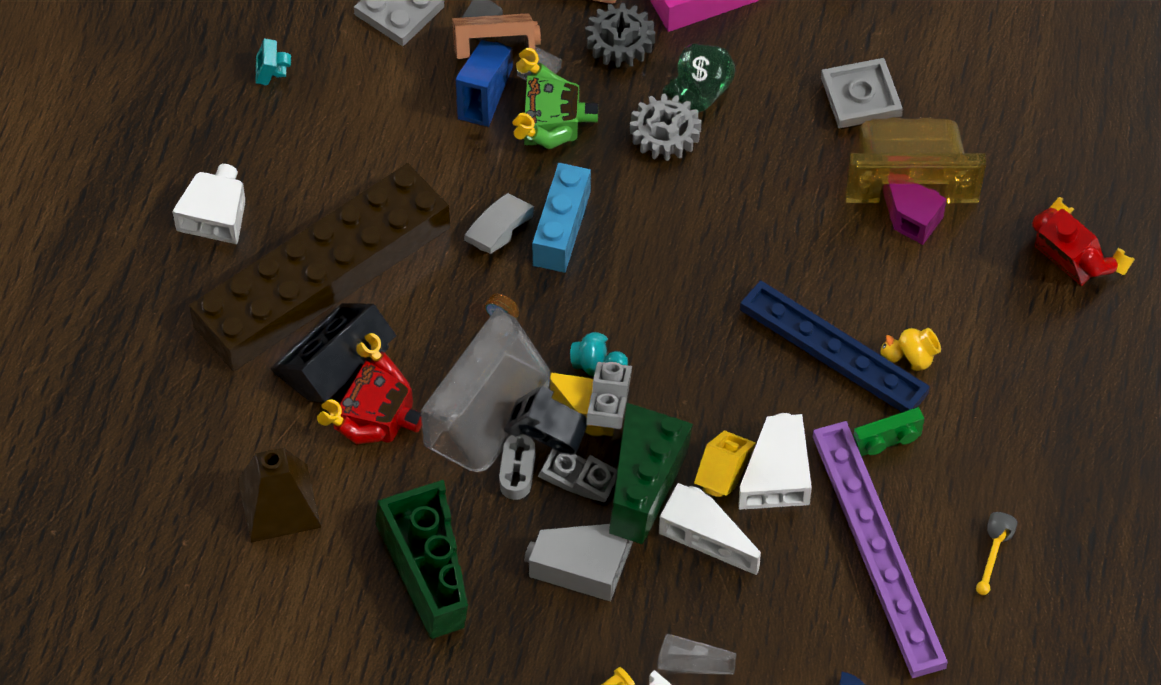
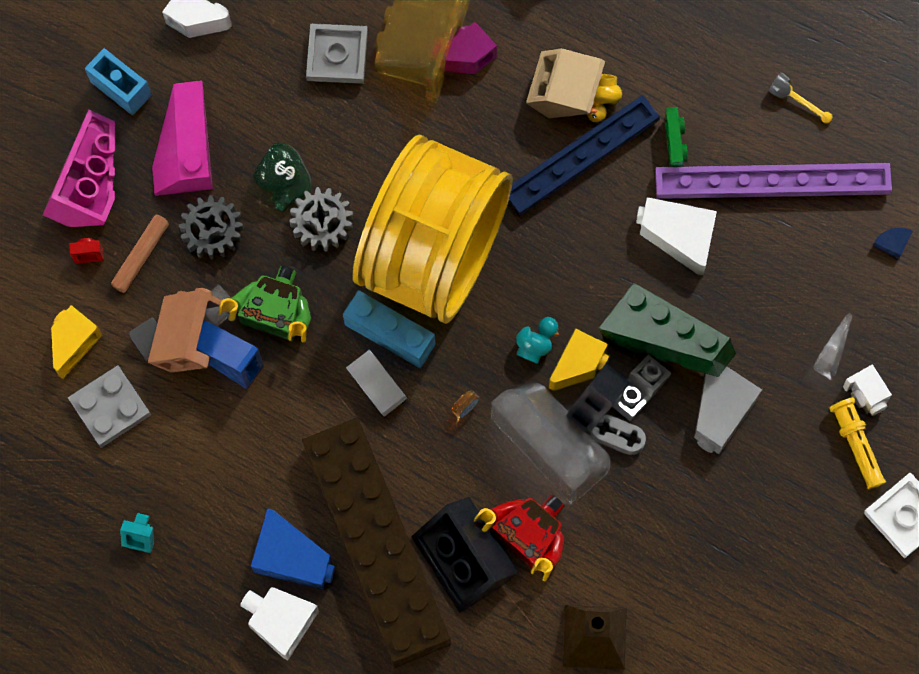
camera: 70 degrees left, 15 degrees up
(287, 194) = (290, 555): none -> blue slope
(425, 553) = (691, 527): dark green wedge -> none
(609, 395) = (589, 339): light grey slope -> none
(670, 194) = (431, 228): none -> yellow wheel
(702, 525) = (720, 303): white slope -> none
(723, 463) = (666, 270): yellow slope -> none
(907, 301) = (565, 83): none -> tan slope

